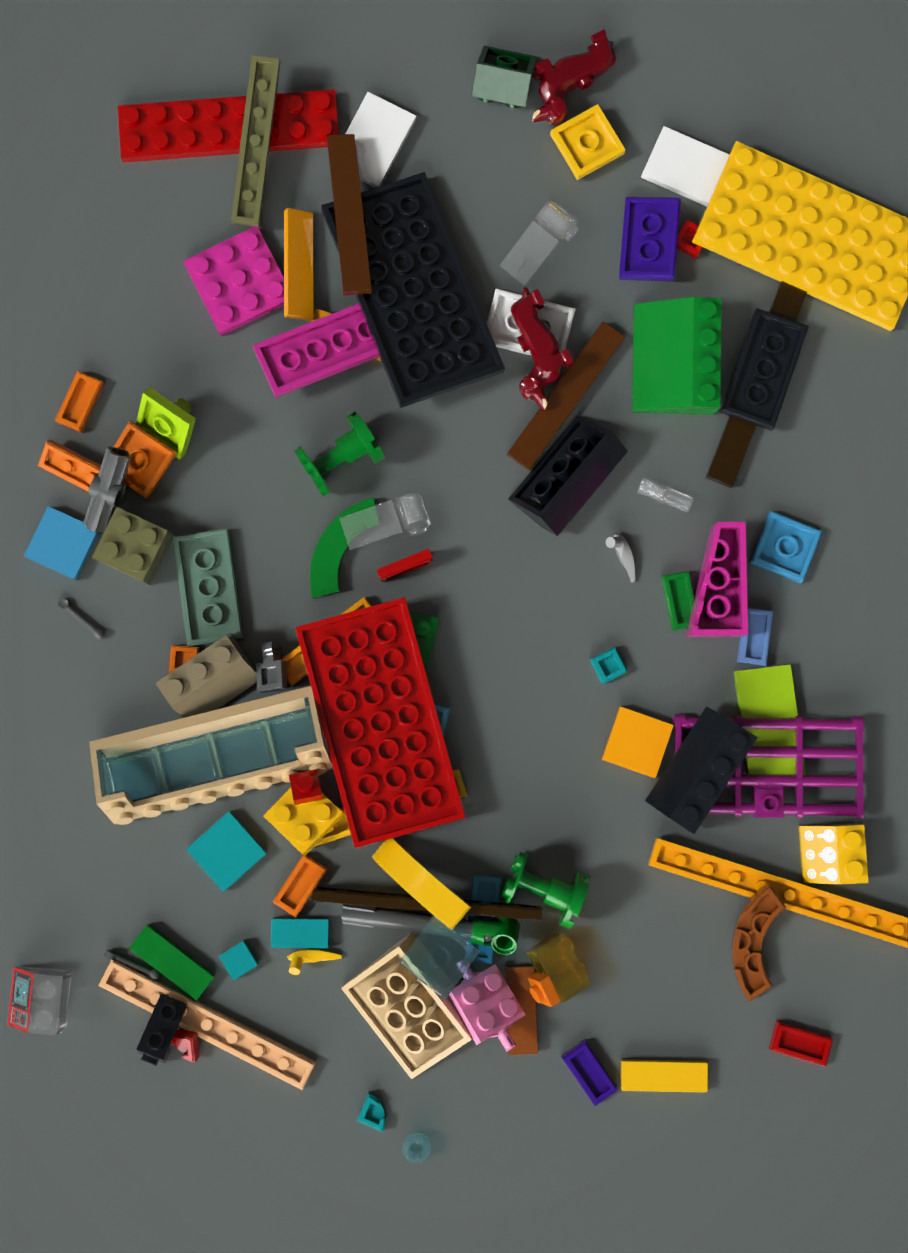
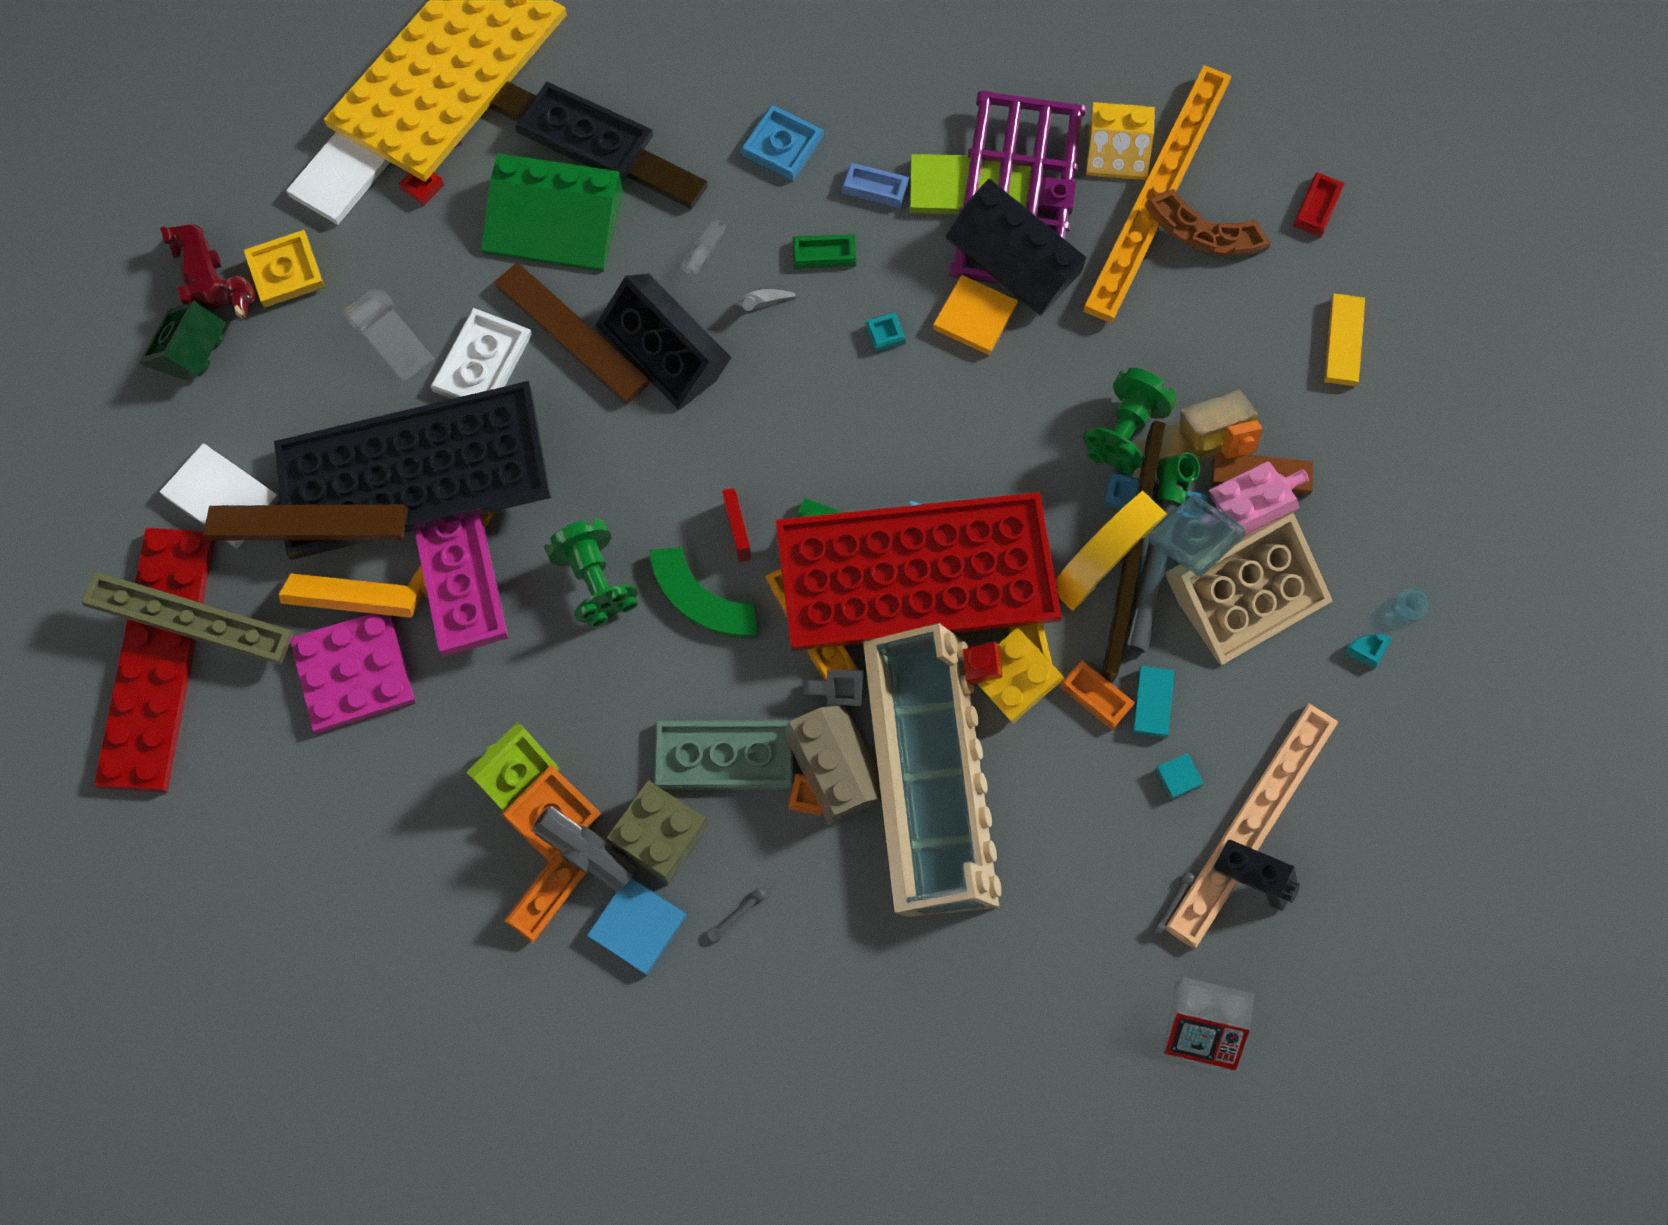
camera: 75 degrees left, 15 degrees down
(79, 402) = (461, 882): orange tile -> none
(172, 962) = (1174, 855): green tile -> none
(187, 1043) = (1277, 846): red tile -> none
(226, 851) = (1047, 774): teal tile -> none
(309, 956) = (1181, 694): yellow bar -> none
(386, 519) = (680, 538): clear door -> none
(541, 345) = (509, 342): dark red animal -> none
(589, 1072) = (1336, 413): dark purple tile -> none
(650, 238) = (411, 222): dark purple tile -> none
(721, 591) = (813, 201): dark pink wedge -> none

